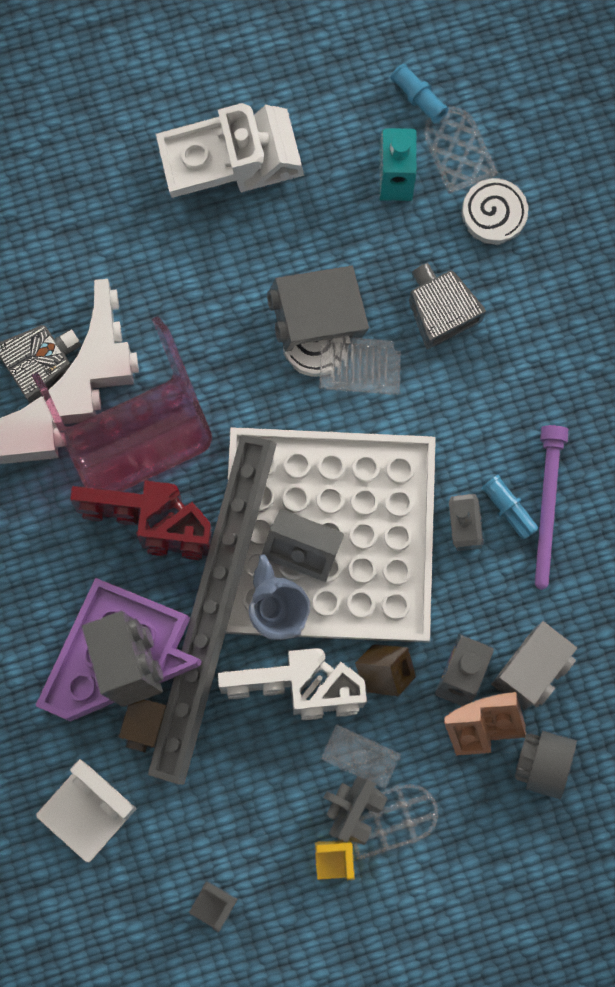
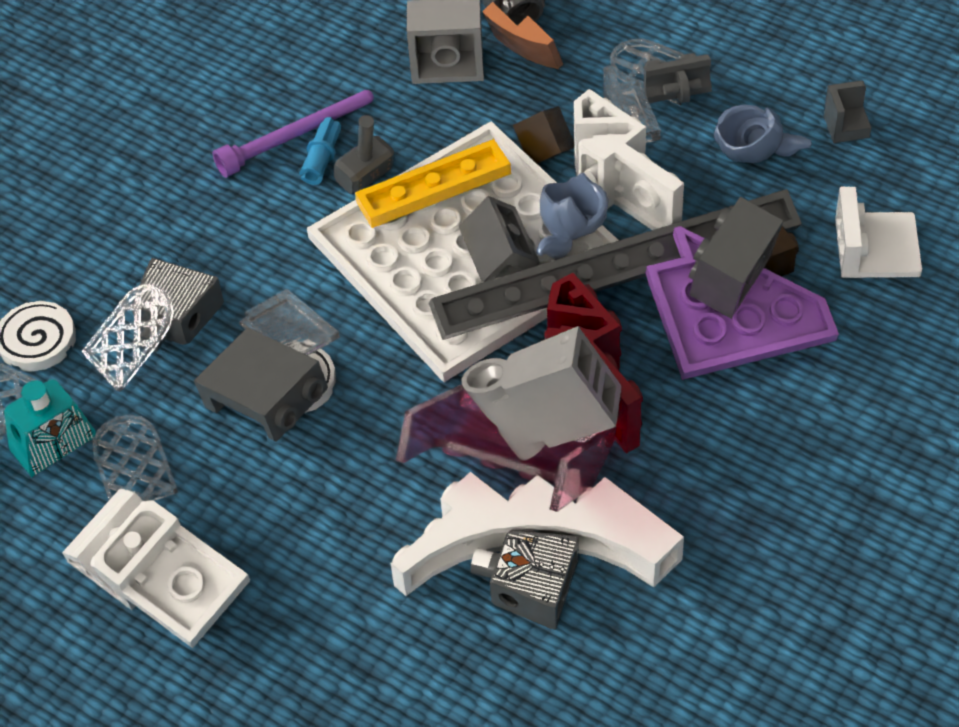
camera: 120 degrees left, 25 degrees down
(115, 432) = (546, 393): none -> light grey piece
(250, 812) = (755, 134): none -> sand blue hair
(334, 860) = (726, 74): yellow panel -> none
(339, 193) = (125, 420): none -> clear window
(394, 543) = (433, 183): none -> yellow plate
(436, 236) = (119, 312): none -> clear window
(464, 670) = (489, 82): dark grey torso -> none

